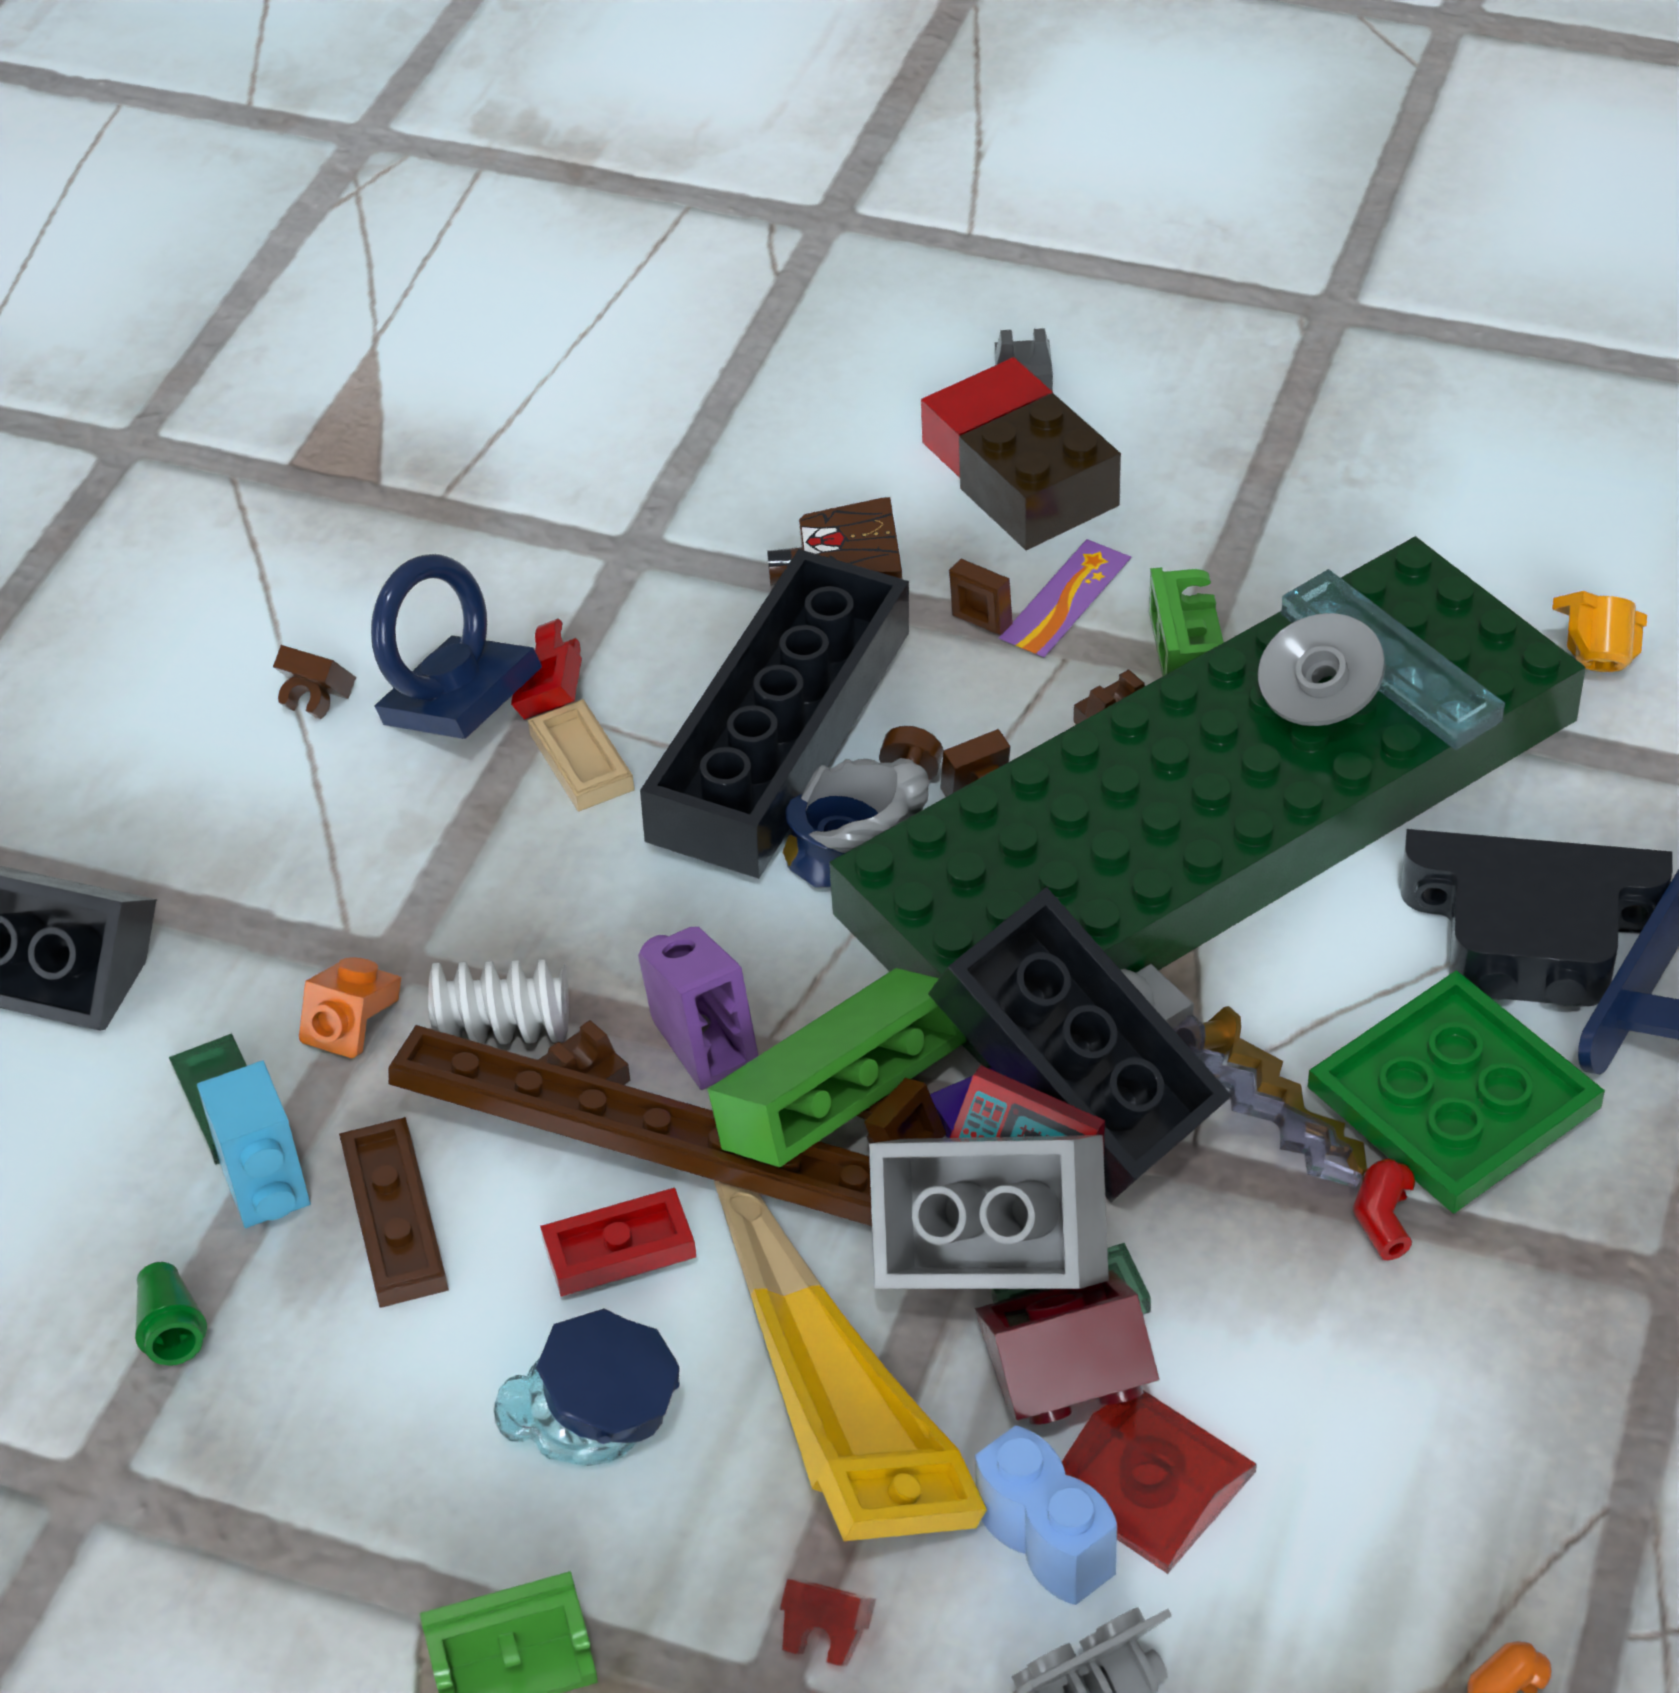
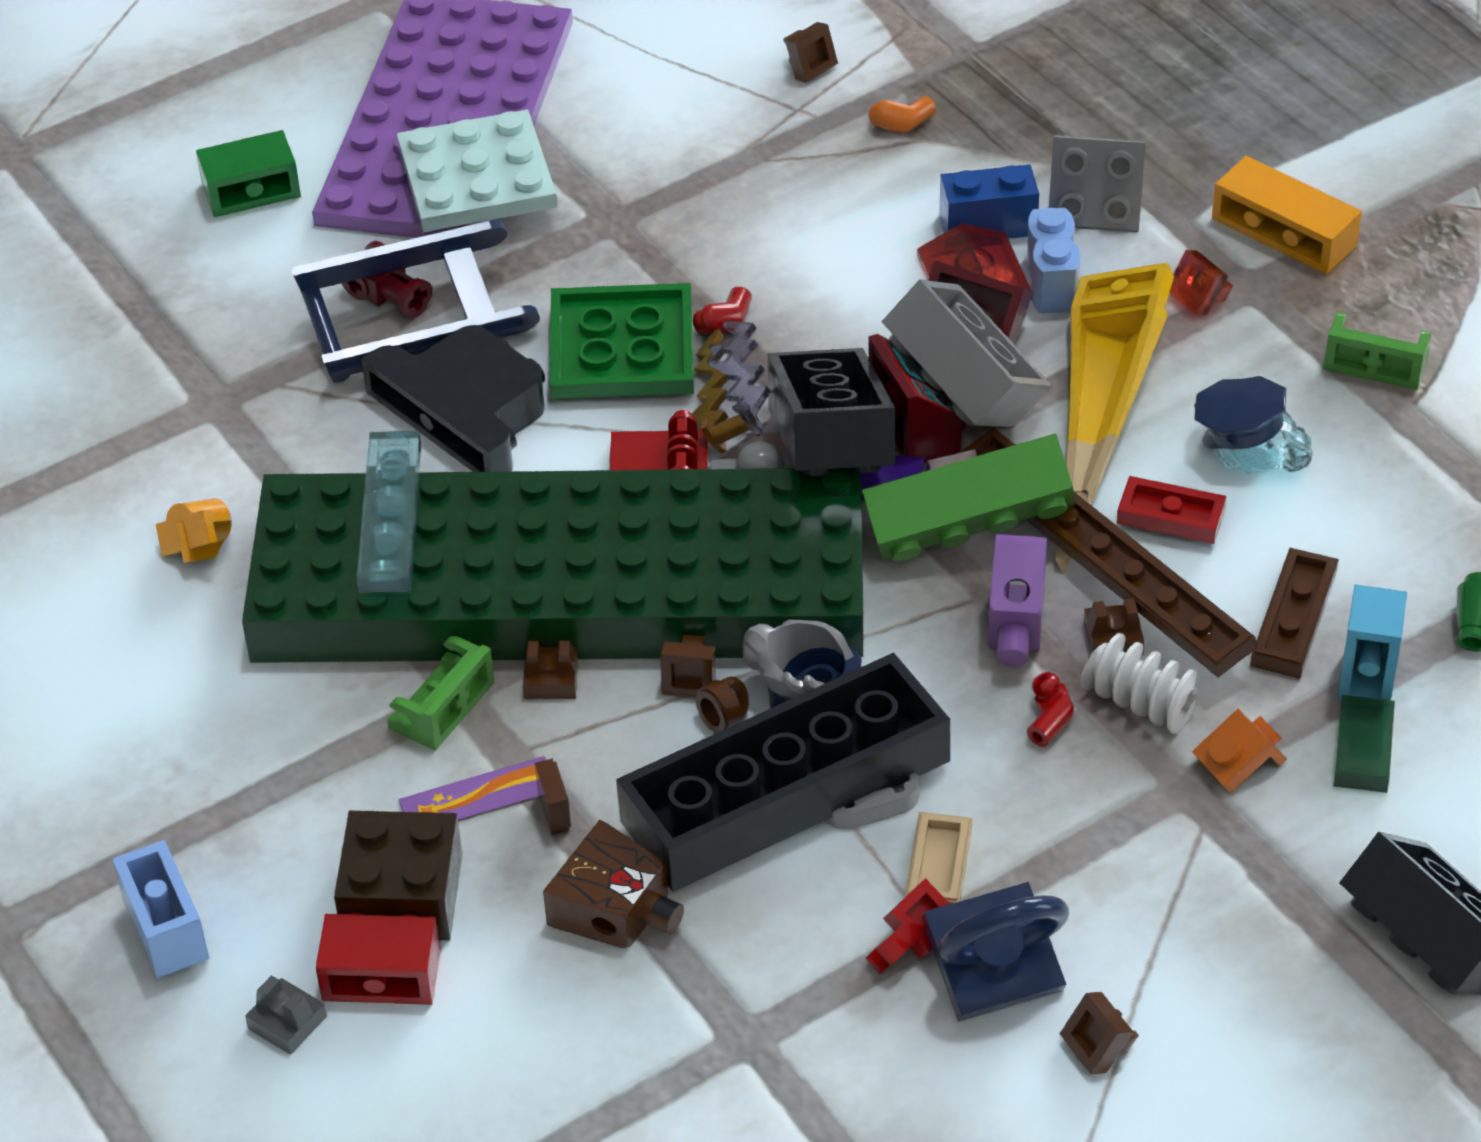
camera: 145 degrees left, 0 degrees up
(579, 950) = (1054, 709): none -> red arm
(1195, 340) = (160, 909): none -> light blue brick
(1212, 1559) = (989, 199): none -> blue brick
(1244, 966) = (673, 449): none -> red hinge
(1318, 649) = (447, 514): light grey dish -> none

